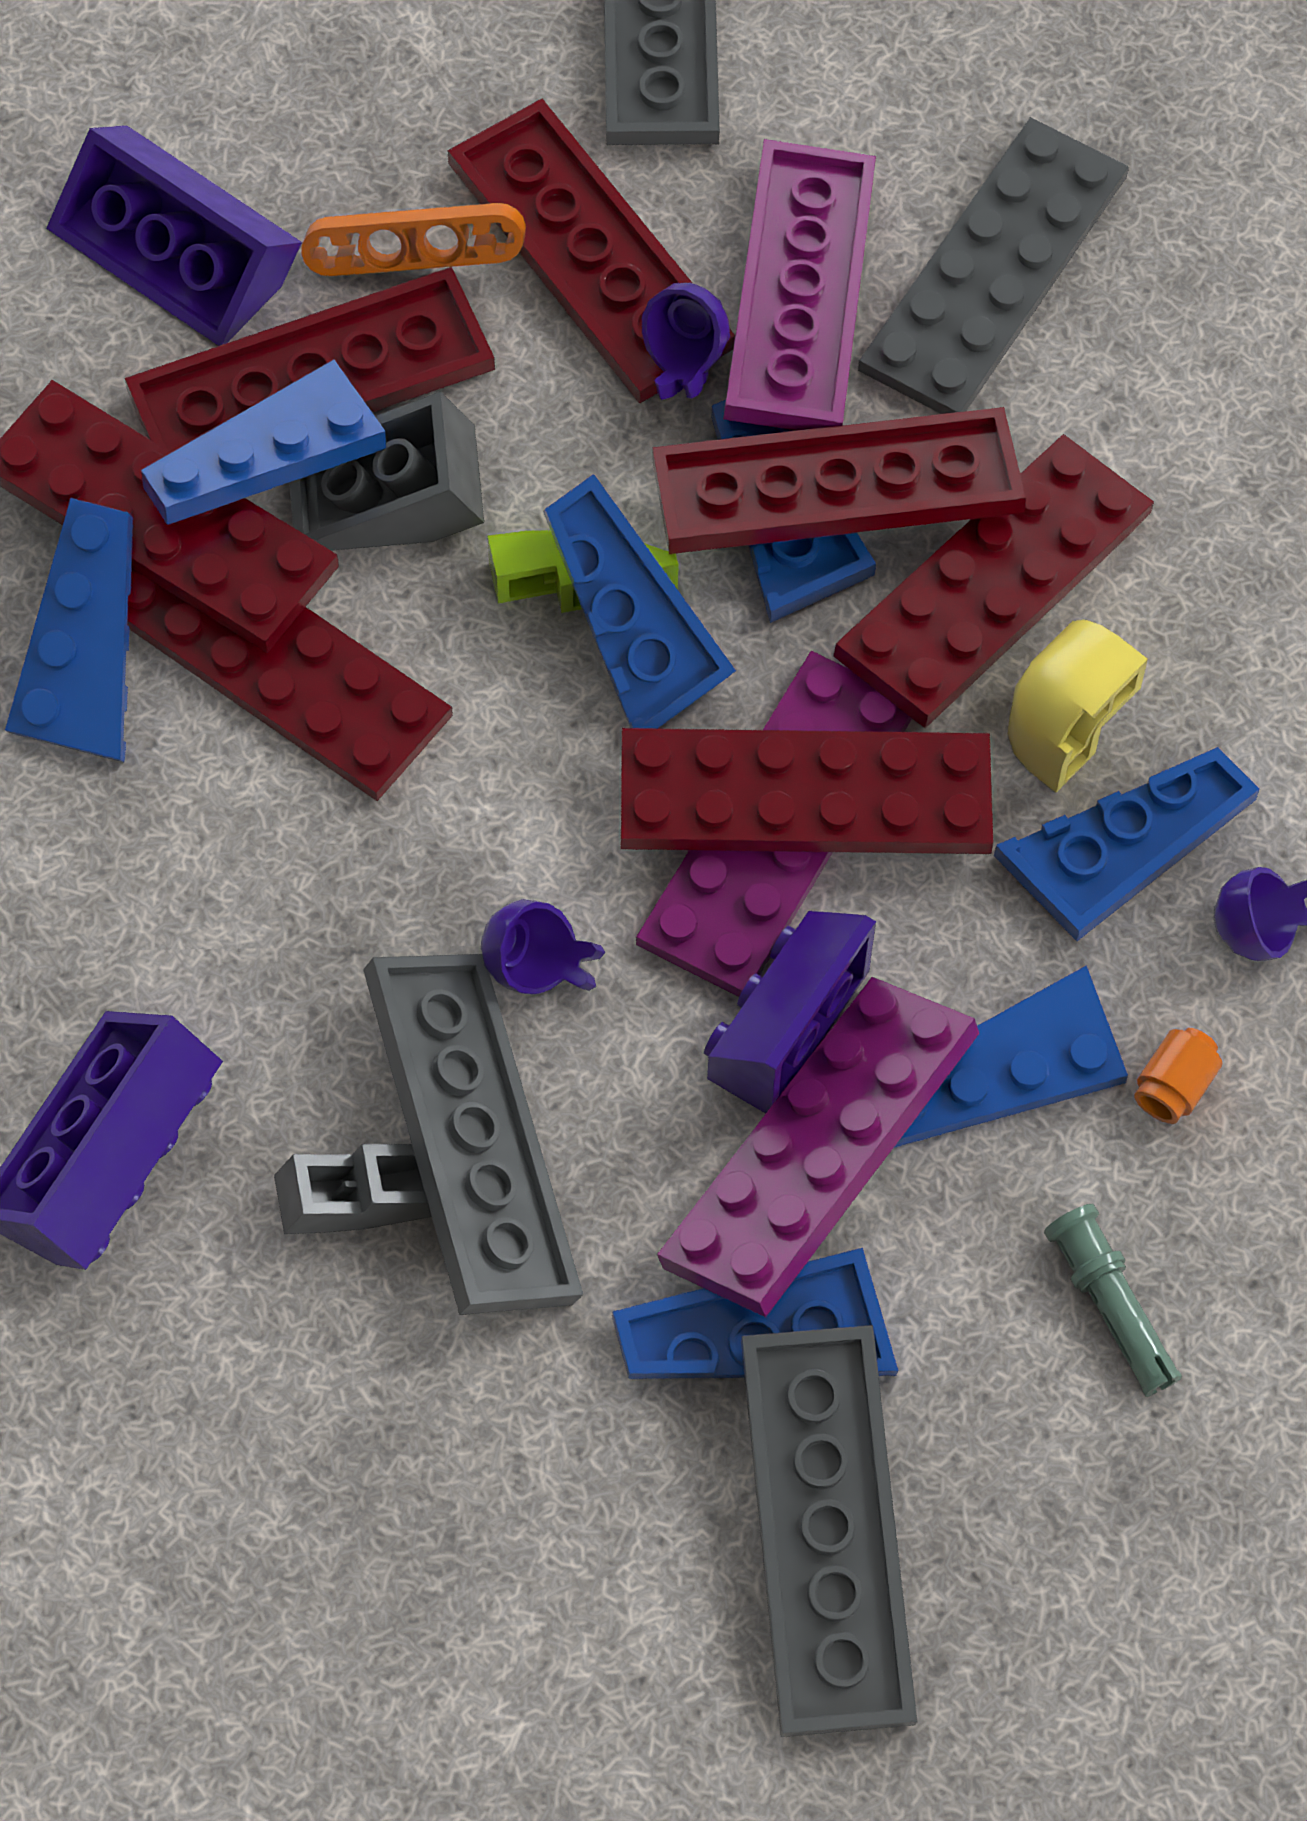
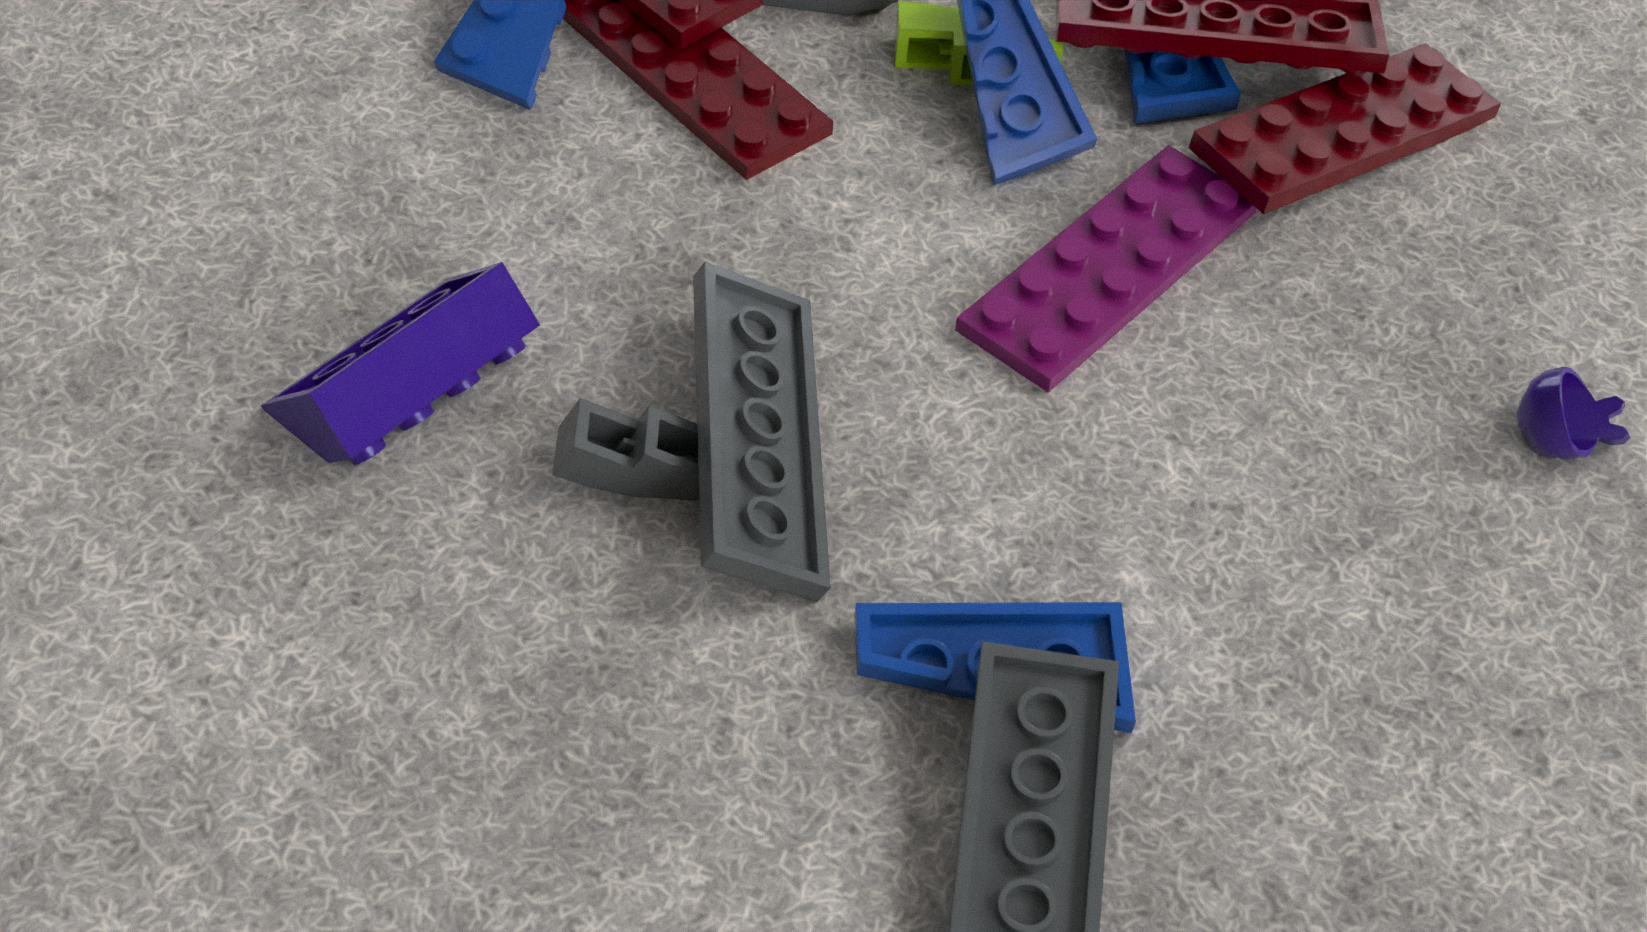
camera: 10 degrees right, 15 degrees down
(534, 949) = (859, 301): dark purple piece -> none
(790, 1006) = (1094, 395): dark purple slope -> none
(806, 791) = (1144, 234): dark red plate -> none
(818, 1146) = (1091, 510): magenta plate -> none
(1026, 1059) = (1300, 490): blue wing -> none
(1069, 698) = (1403, 209): light yellow brick -> none
(1100, 1274) = (1362, 683): sand green pin -> none
(1109, 853) = (1439, 340): blue wing -> none
(1178, 1074) = (1465, 530): orange brick -> none

